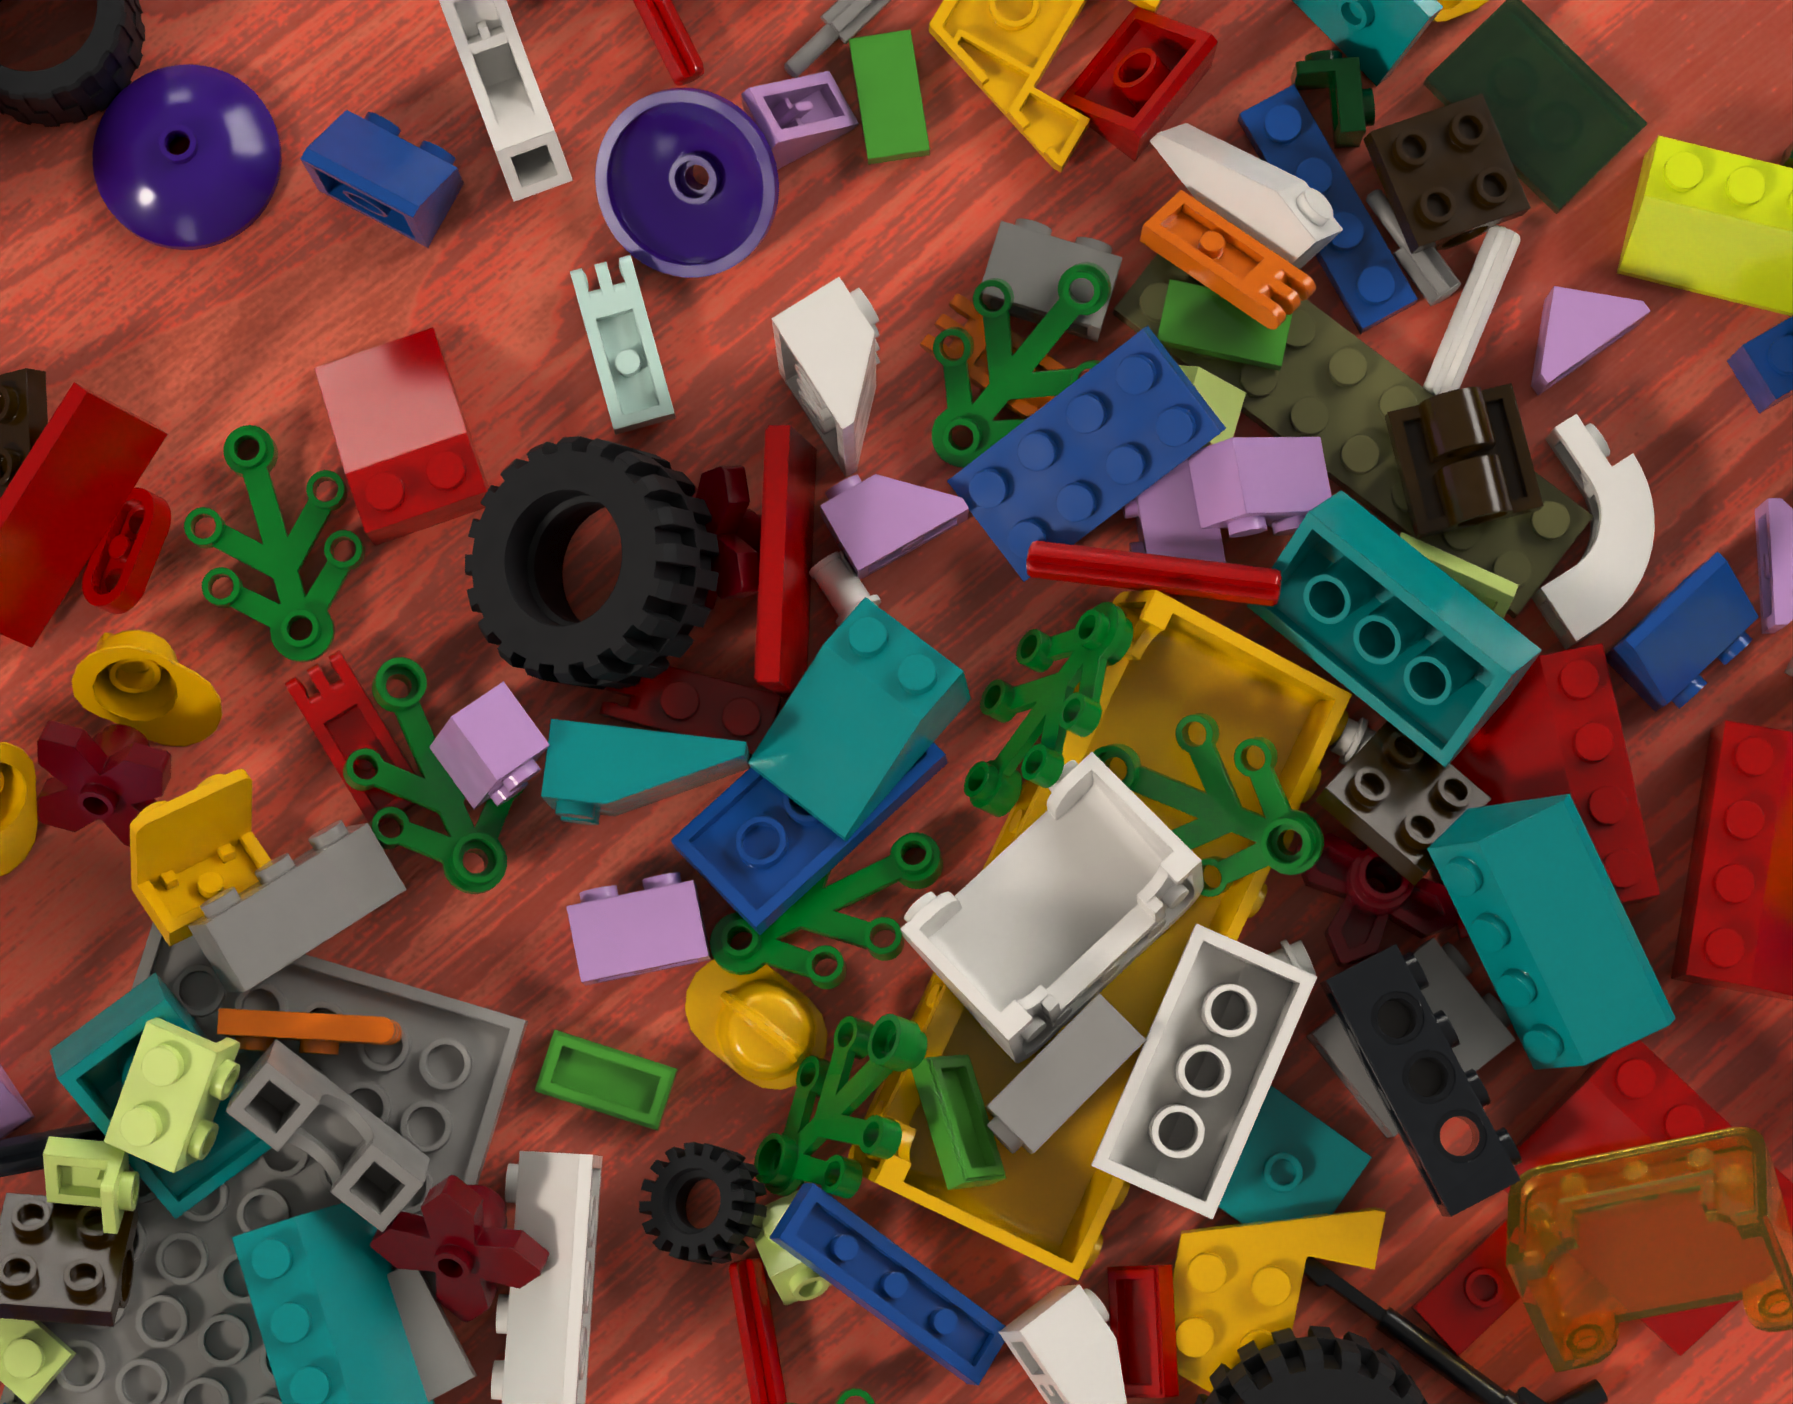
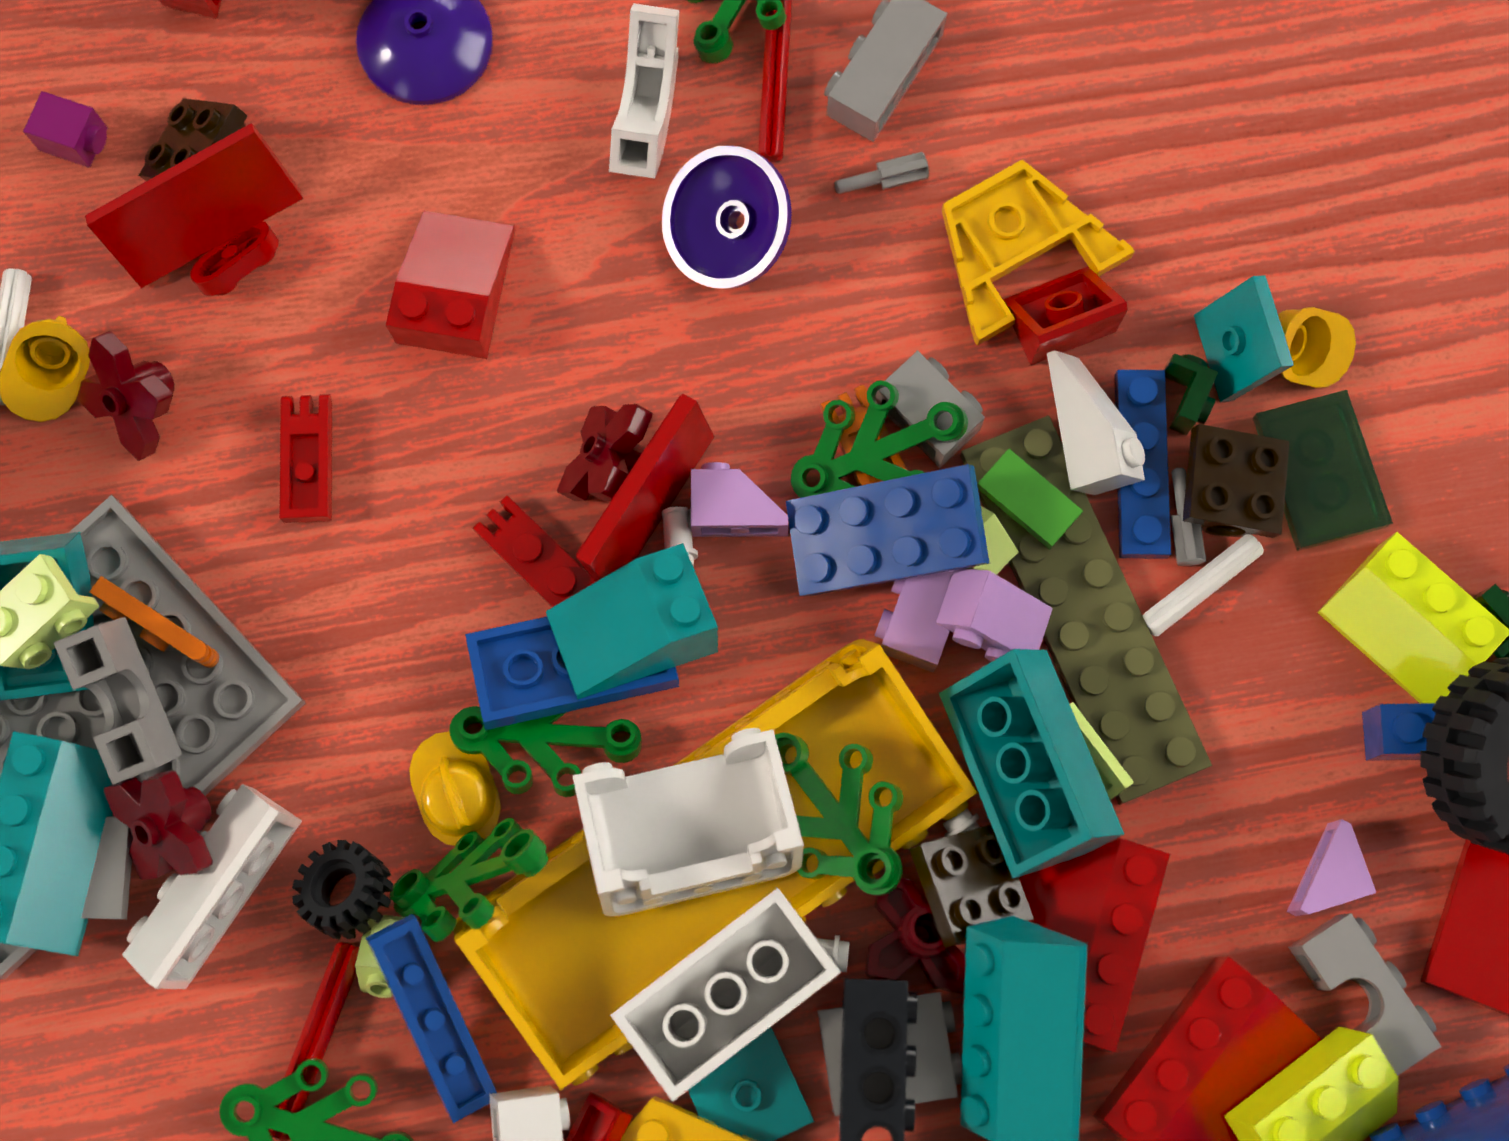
camera: 30 degrees right, 5 degrees down
(142, 685) = (191, 347): yellow piece -> none
(194, 851) = (155, 472): yellow bracket -> none
(280, 553) = (330, 313): green plant -> none
(295, 905) = (195, 538): light grey brick -> none
(384, 175) = (536, 110): blue slope -> none
(433, 791) = (338, 517): green plant -> none
(490, 747) = (379, 504): lavender brick -> none
(523, 550) = (480, 394): black tyre -> none
(606, 1080) = (333, 771): bright green tile -> none
(621, 769) = (460, 571): teal slope -> none
(623, 348) = (626, 303): light aqua hinge -> none
(638, 930) = (410, 683): lavender brick -> none
(799, 114) = (824, 216): lavender slope -> none
(830, 365) = (750, 376): white slope -> none
(889, 97) = (891, 237): bright green tile -> none
(958, 1122) = (540, 932): bright green tile -> none
(1062, 1076) = (627, 941): light grey brick -> none
(1096, 642) = (821, 657): green plant -> none
(1154, 572) = (889, 635): red axle -> none
(1227, 260) = (1053, 455): orange hinge -> none
(1463, 459) = (1142, 676): dark brown plate -> none
(1577, 328) = (1270, 634): lavender slope -> none
(1618, 539) = (1224, 789): white arch -> none
(1684, 634) = (1232, 881): blue slope -> none

